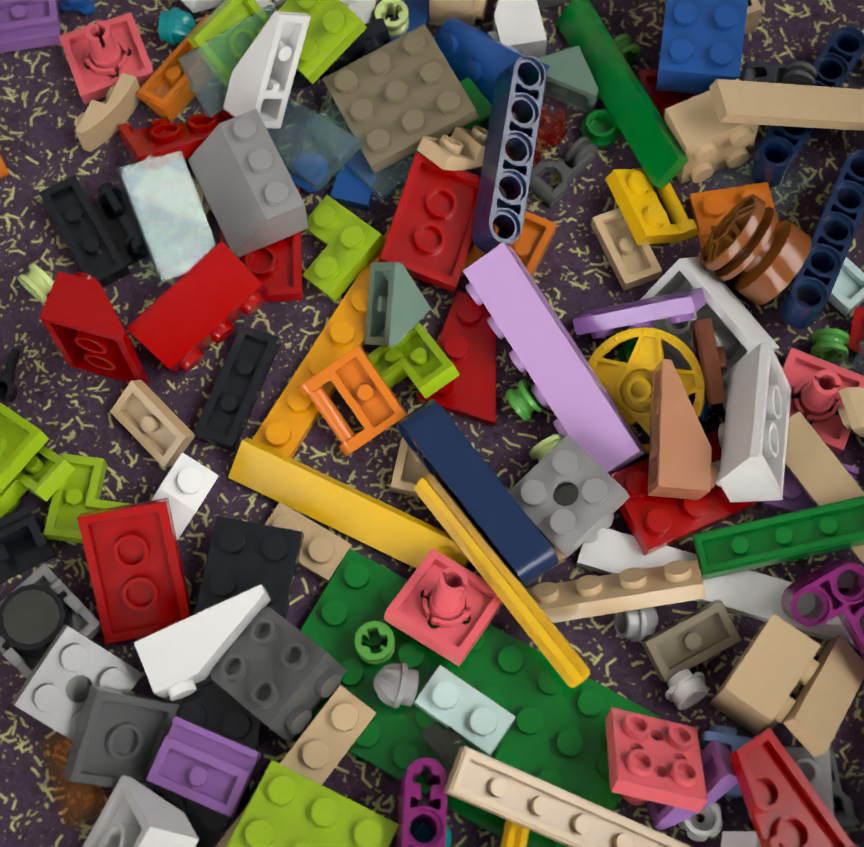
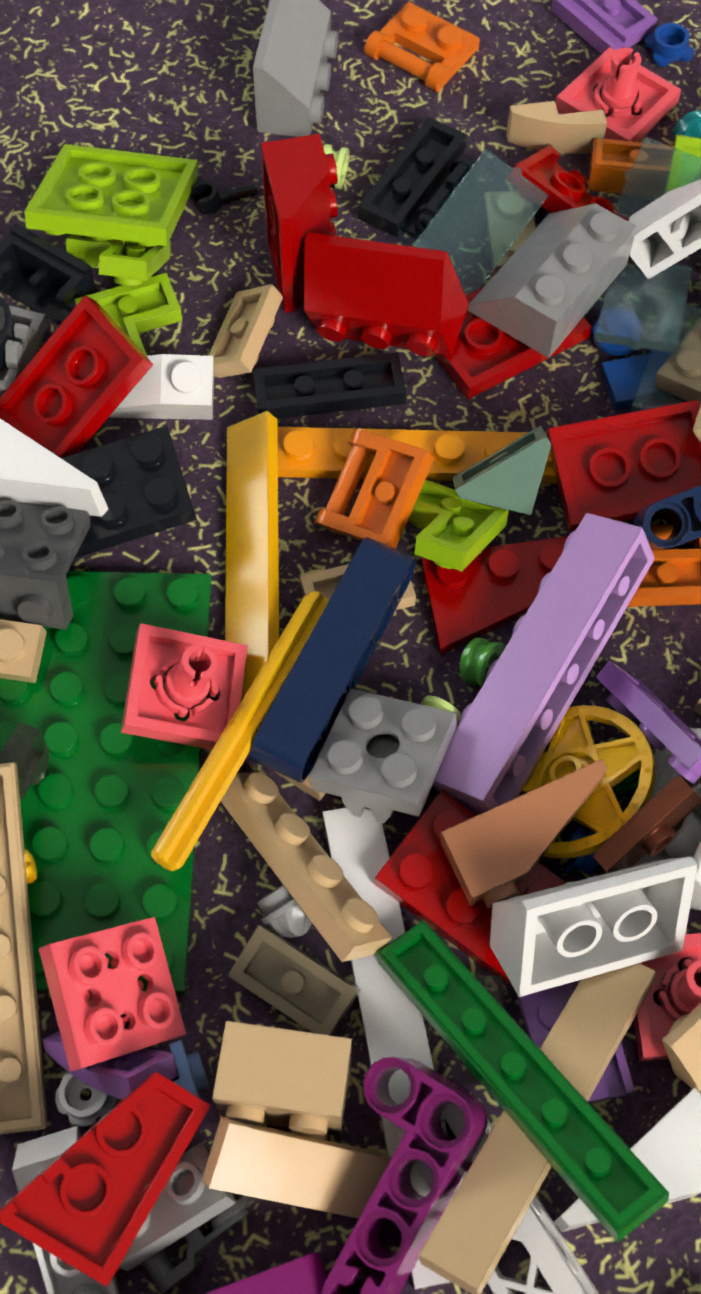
camera: 60 degrees right, 5 degrees down
(320, 548) = (198, 544): tan plate -> none
(348, 247) = (559, 401): lime plate -> none
(385, 633) = (104, 625): bright green bush -> none
(396, 684) = (70, 681): light grey plate -> none
(464, 710) = (79, 768): light aqua plate -> none
(686, 689) = (231, 1002): white plate -> none

